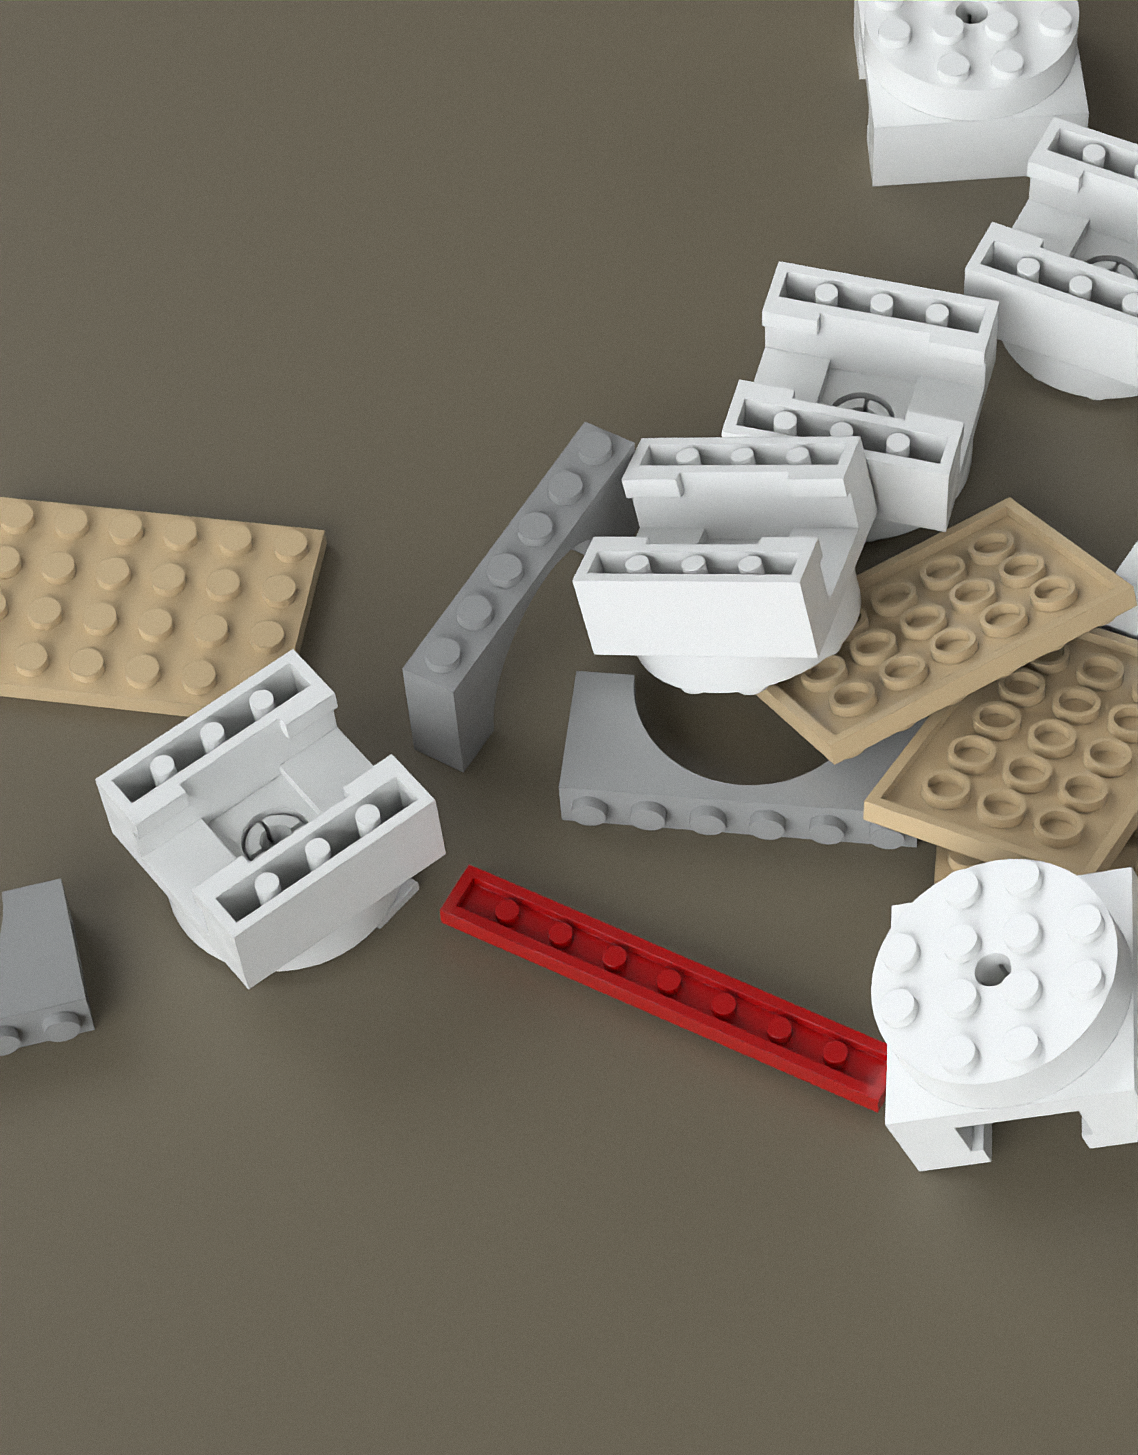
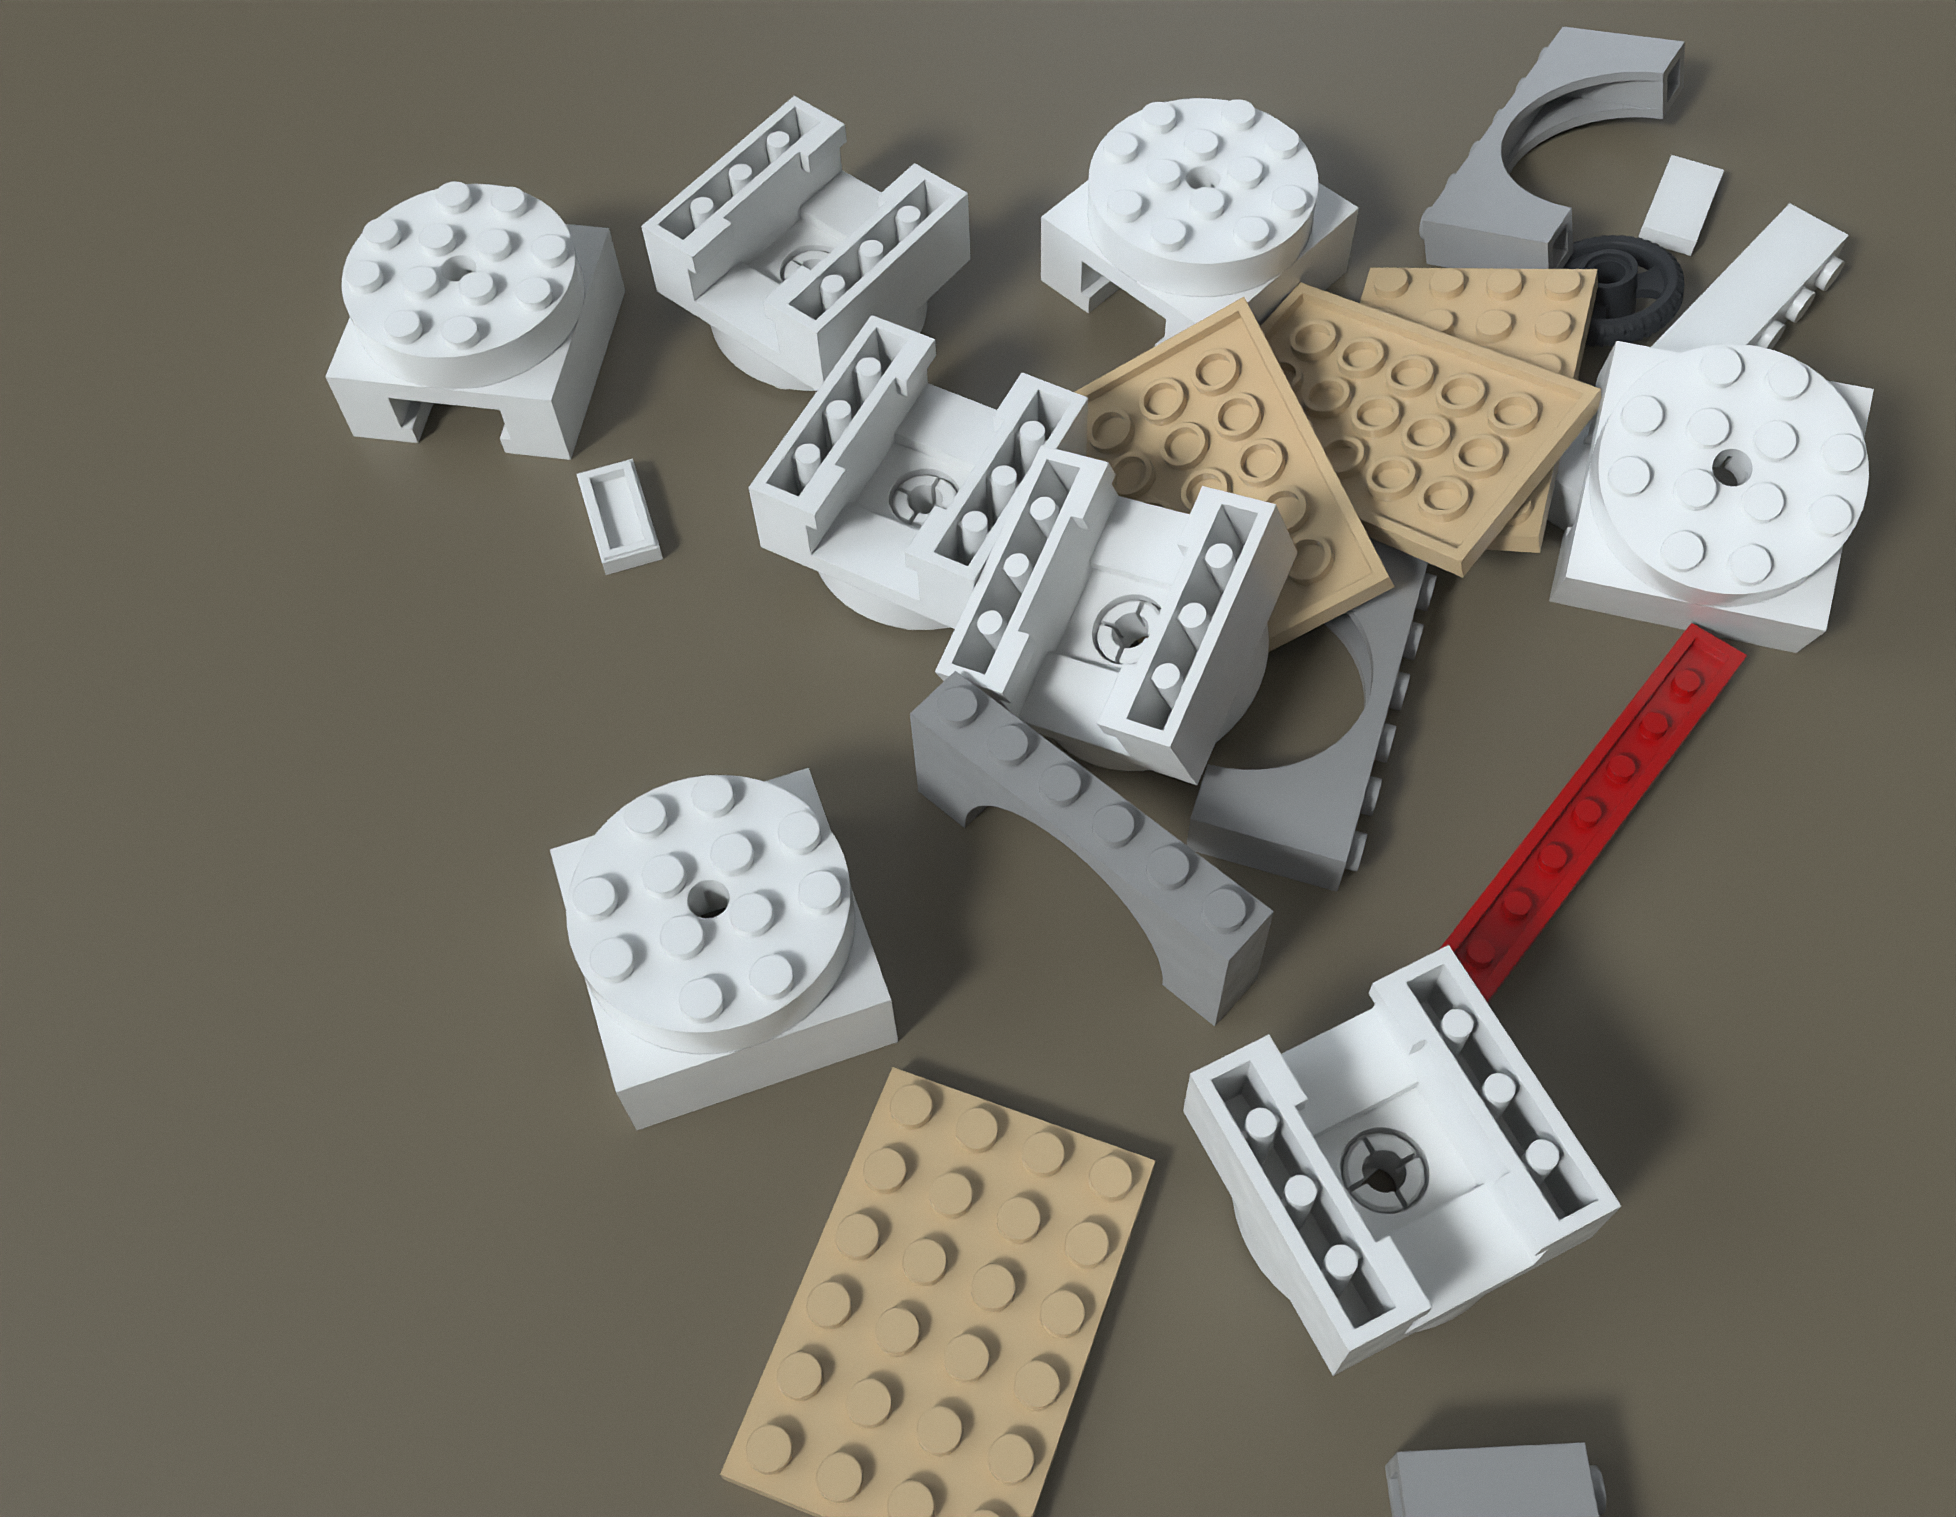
camera: 80 degrees left, 5 degrees up
(387, 370) = (729, 999): none -> white piece
(815, 231) = (619, 517): none -> white tile

